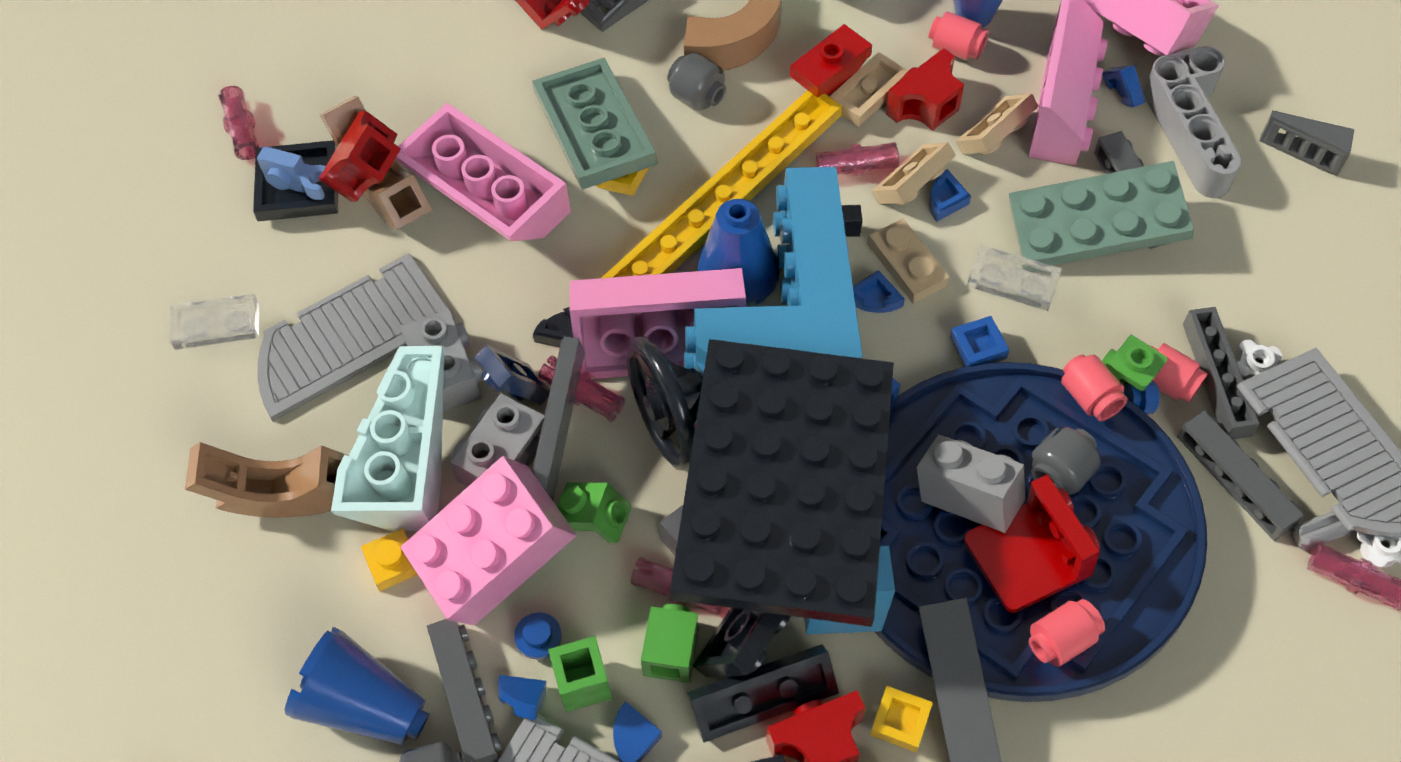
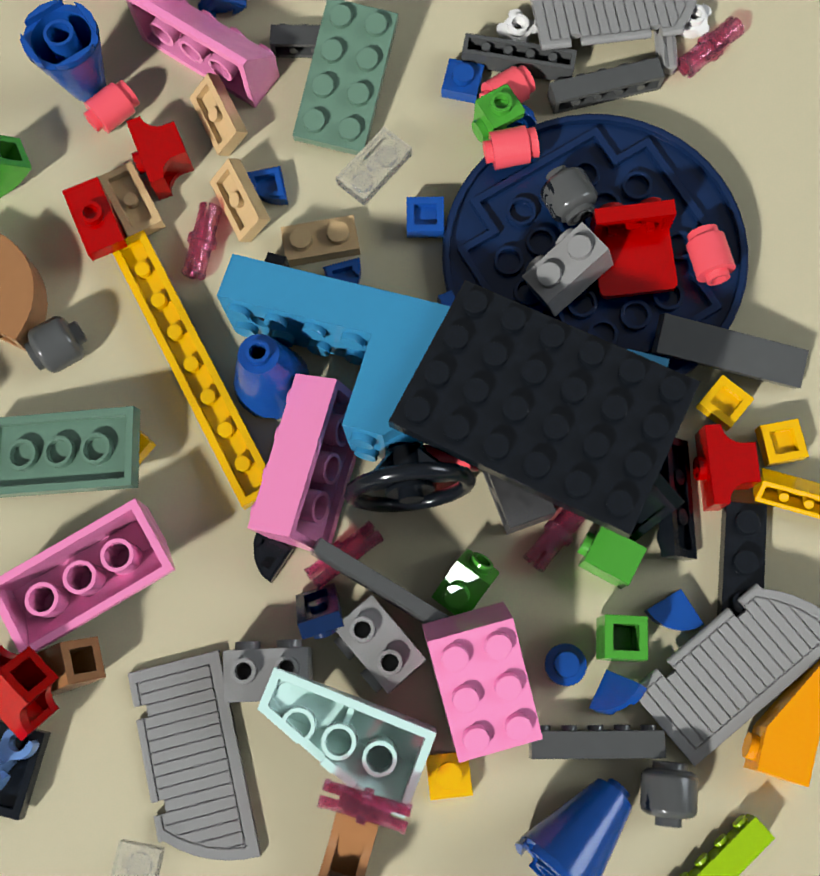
camera: 70 degrees left, 15 degrees up
(331, 464) = (365, 806): none -> clear pink pin
(1164, 326) = (462, 80): none -> blue plate

